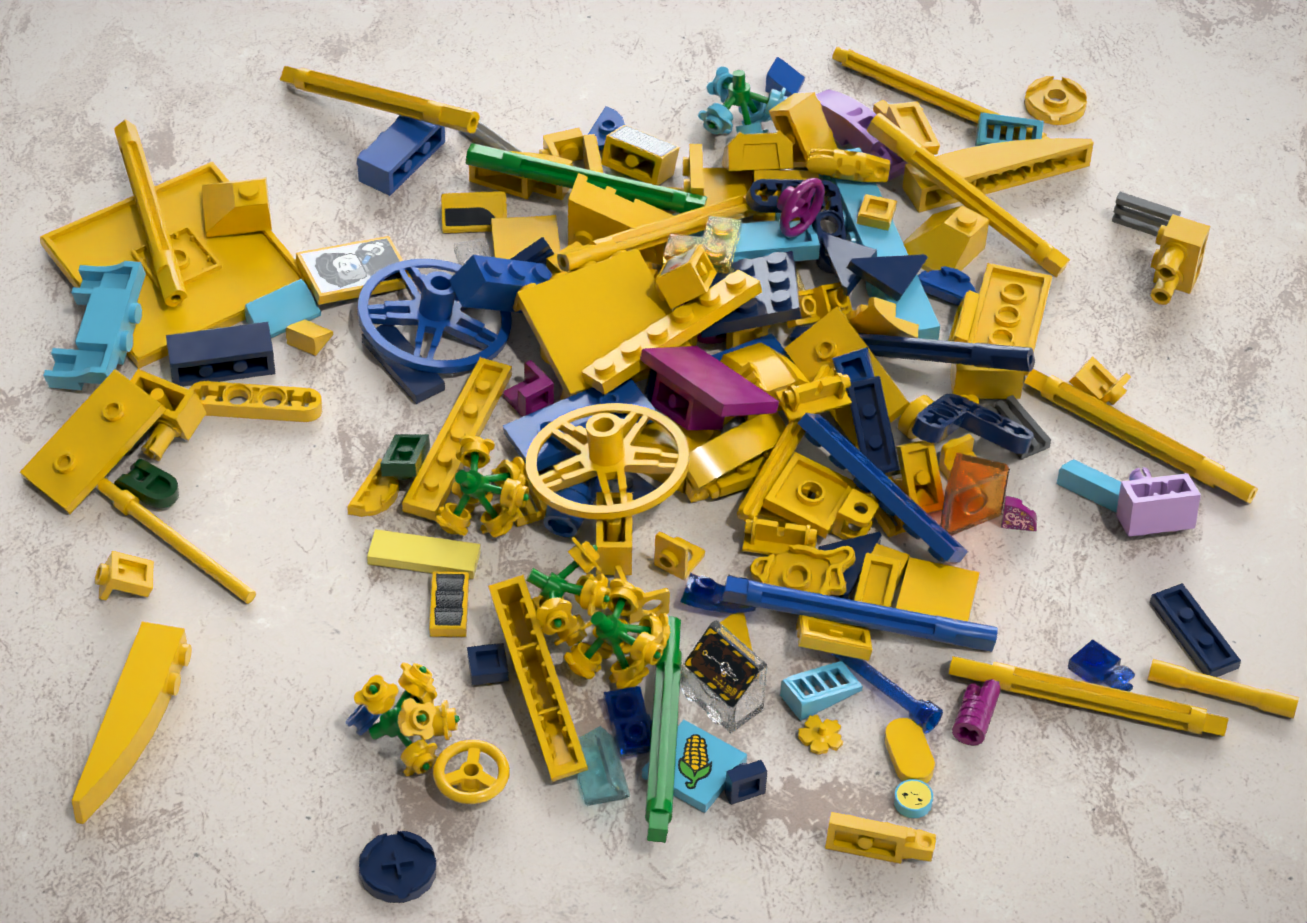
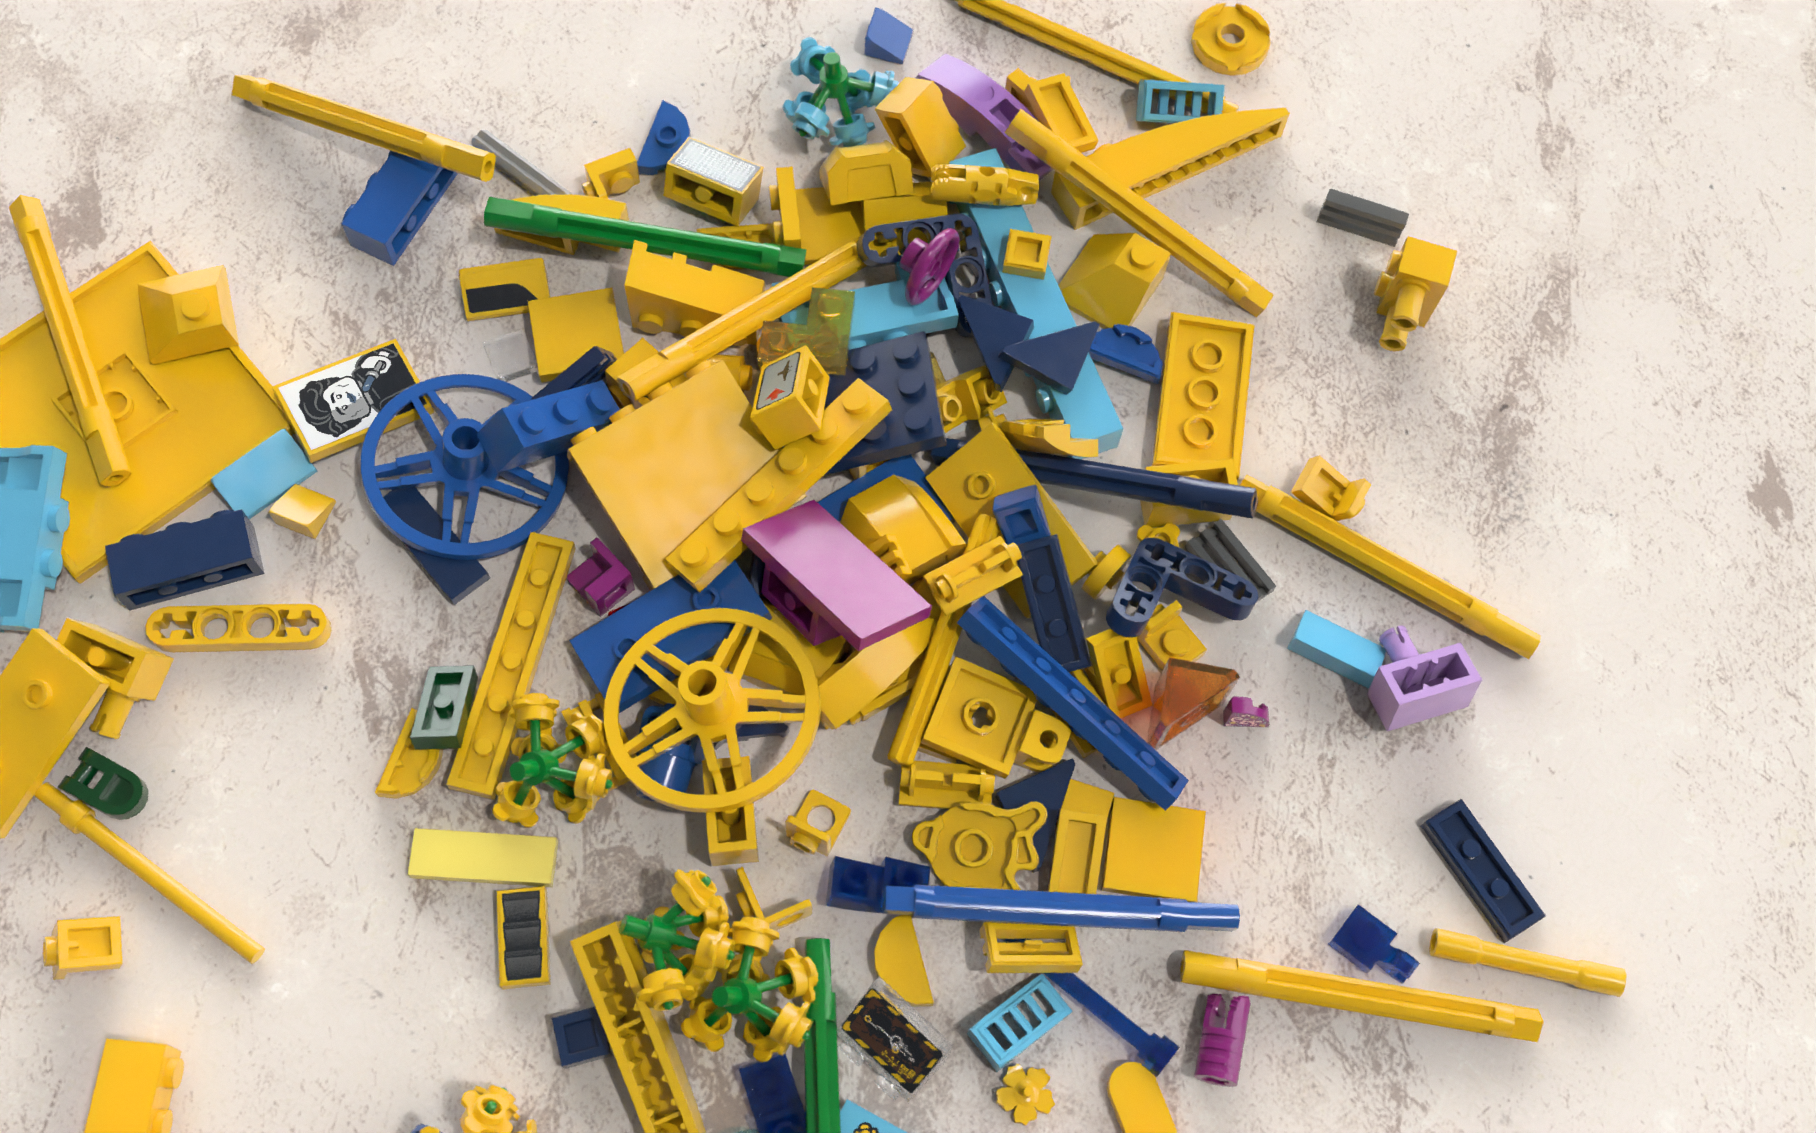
camera: 10 degrees left, 20 degrees up
(591, 153) = (652, 192): yellow tile -> none
(964, 317) = (1148, 415): yellow tile -> none

